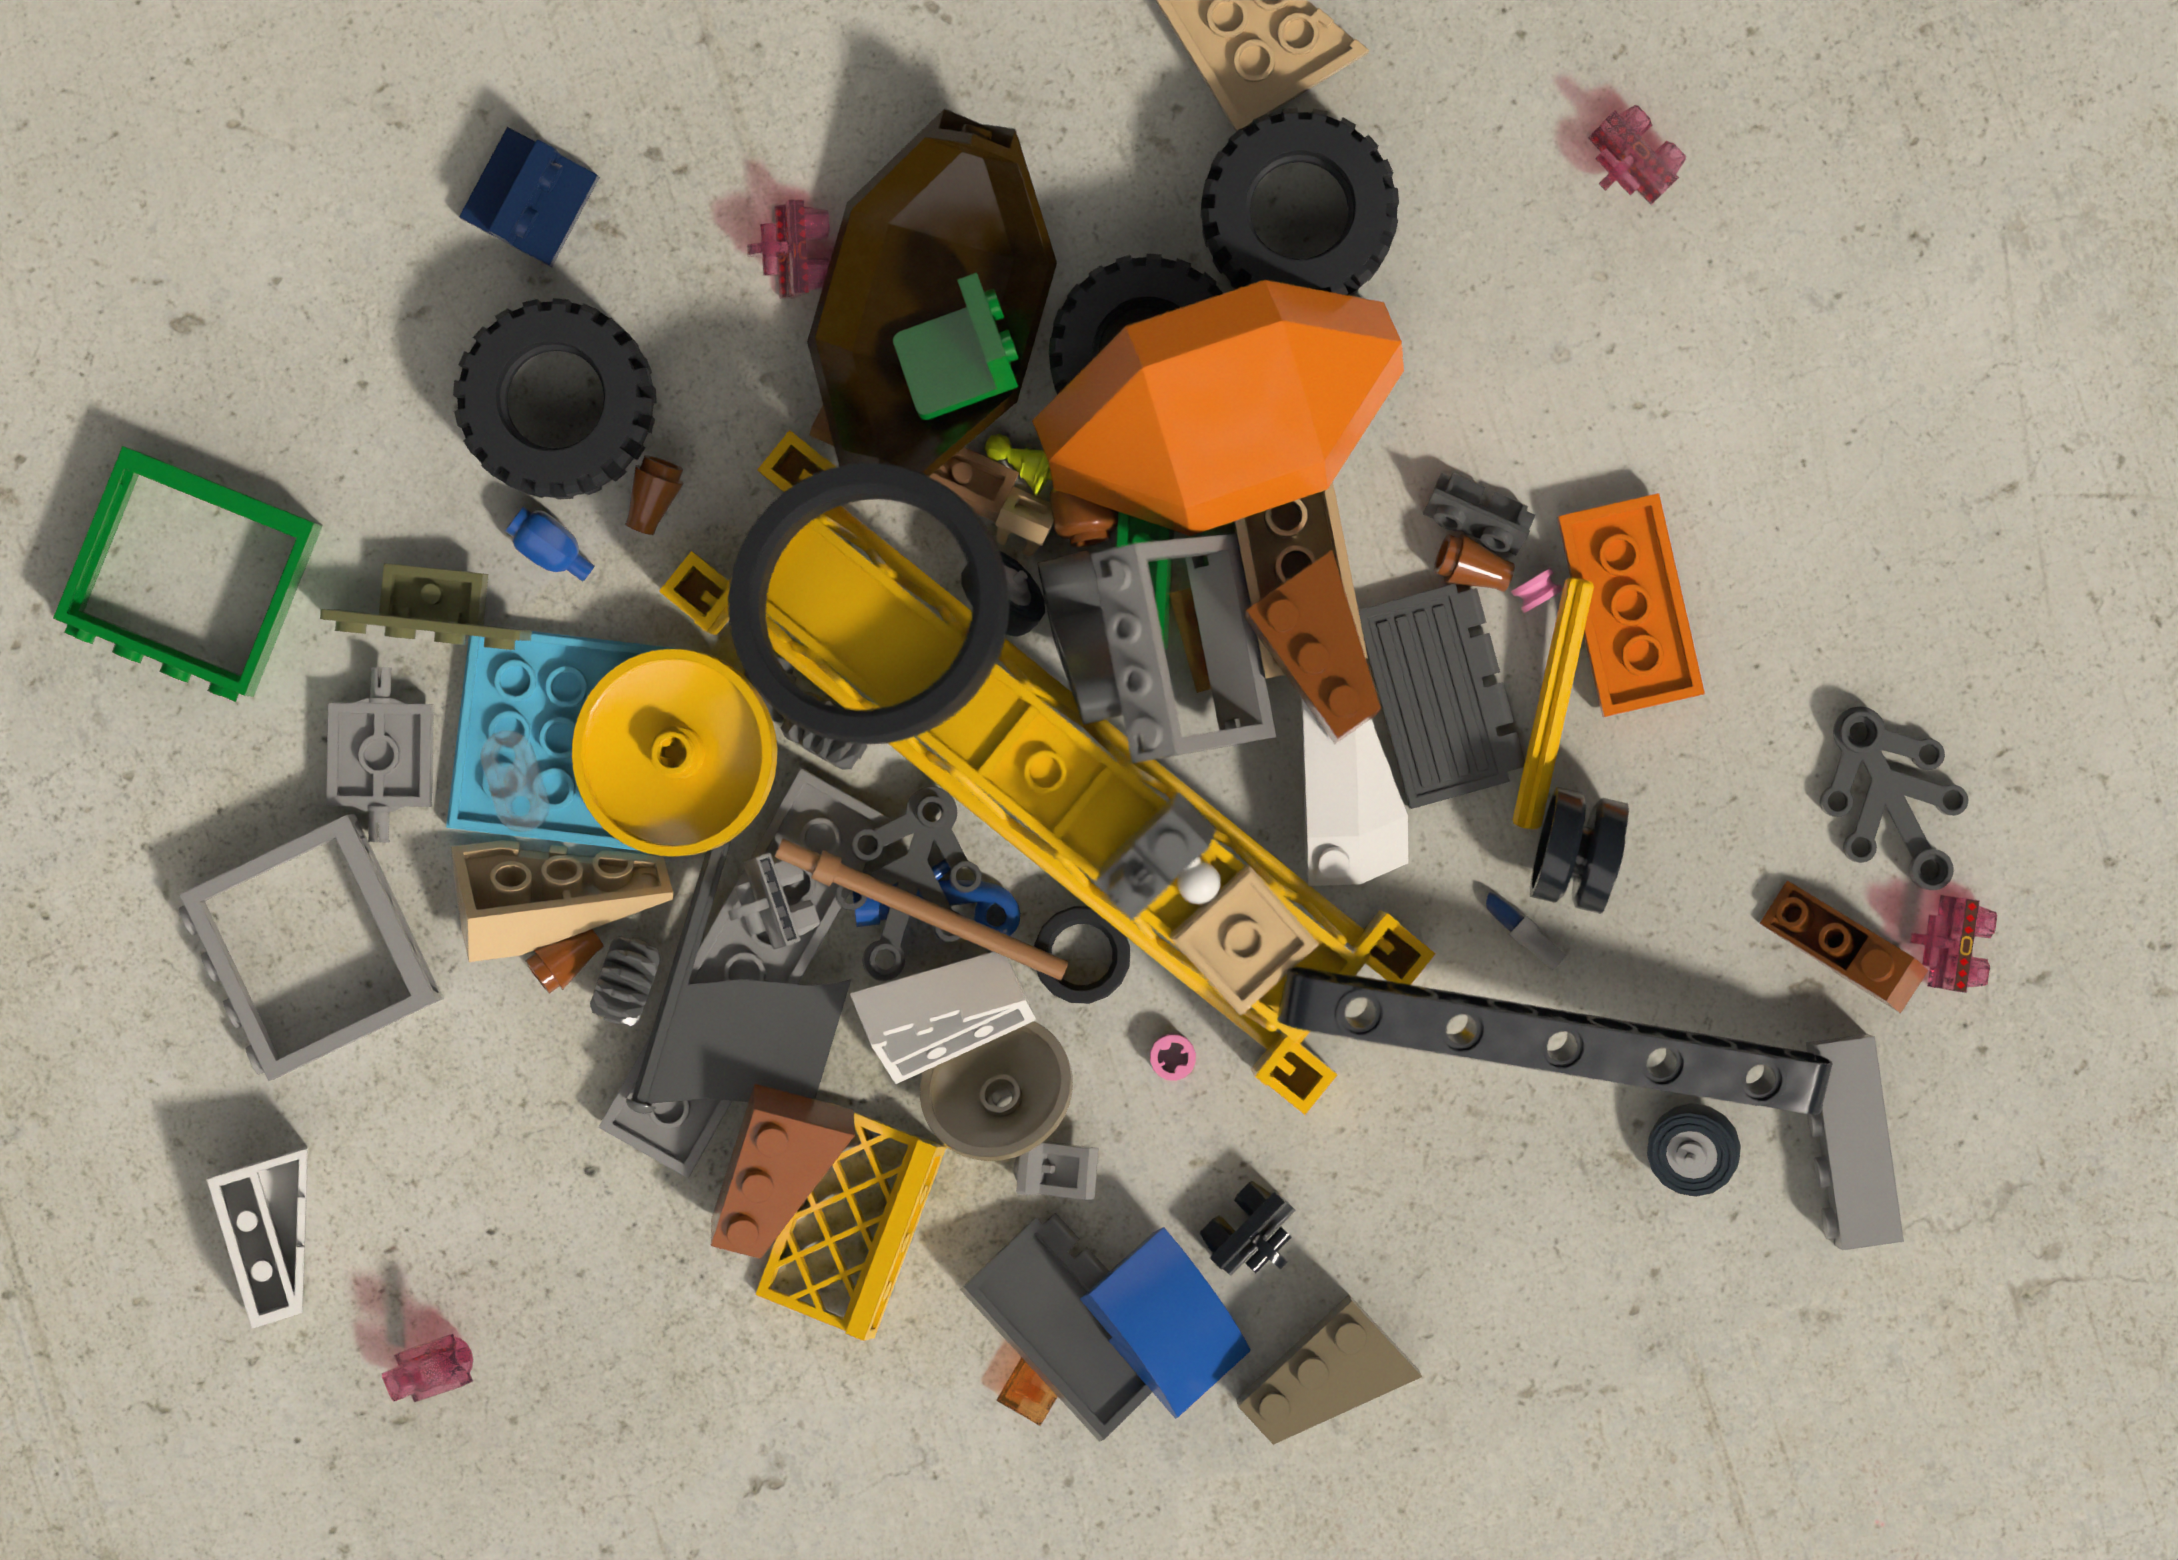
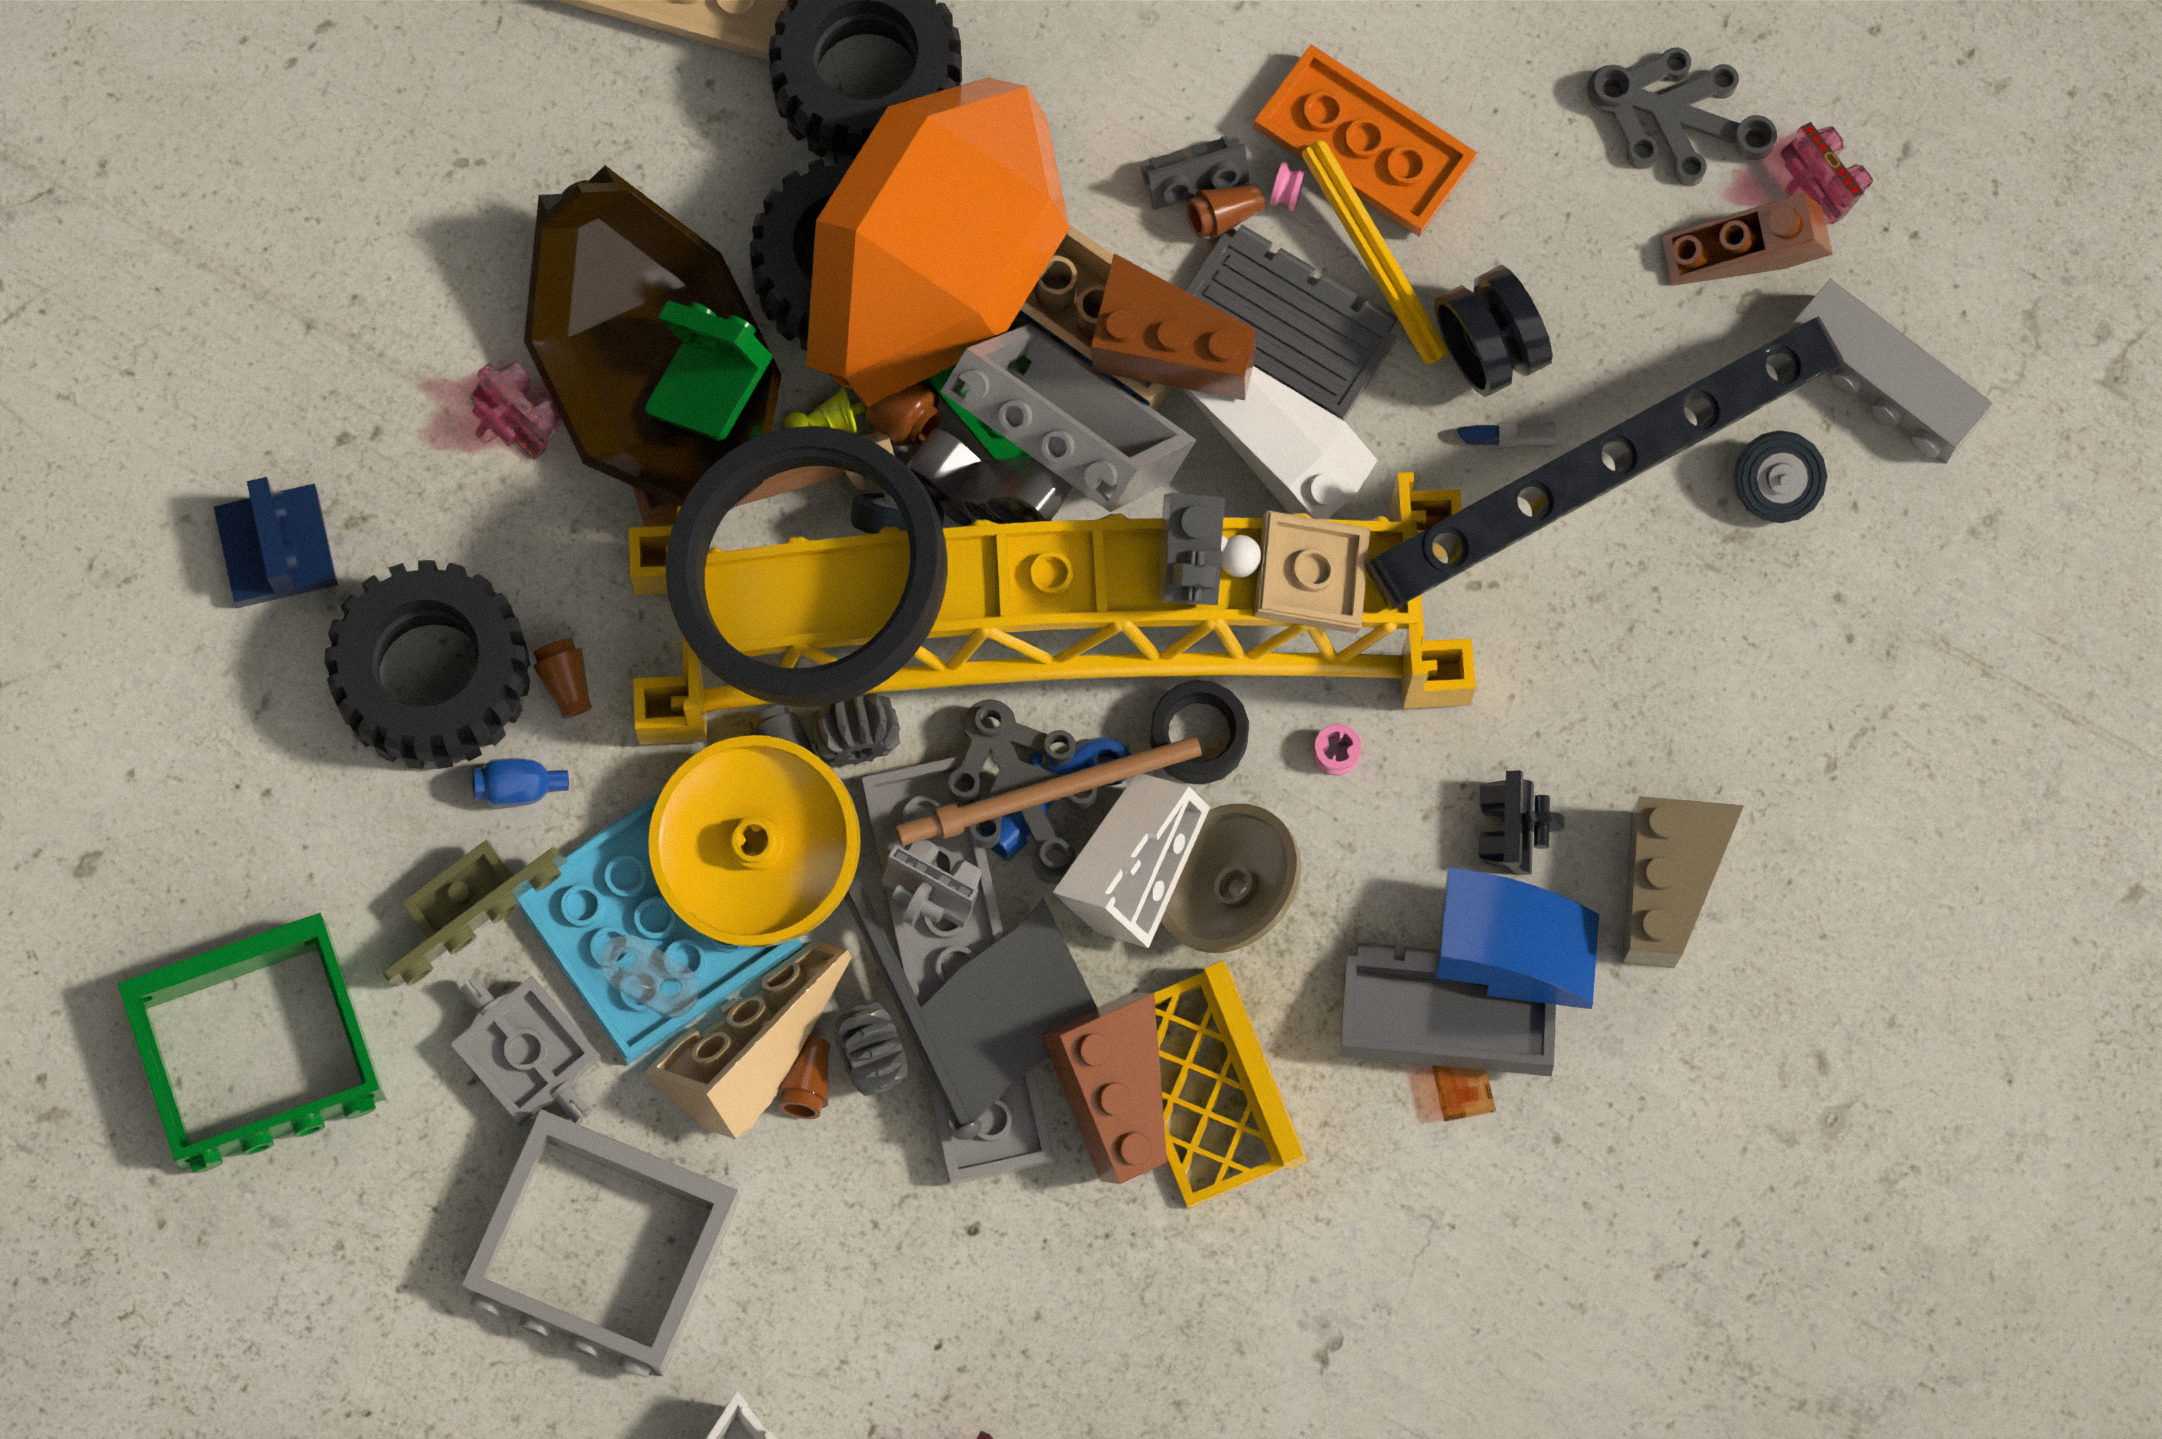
camera: 45 degrees left, 15 degrees down
(1057, 1171) = (1330, 905): light grey bracket -> none

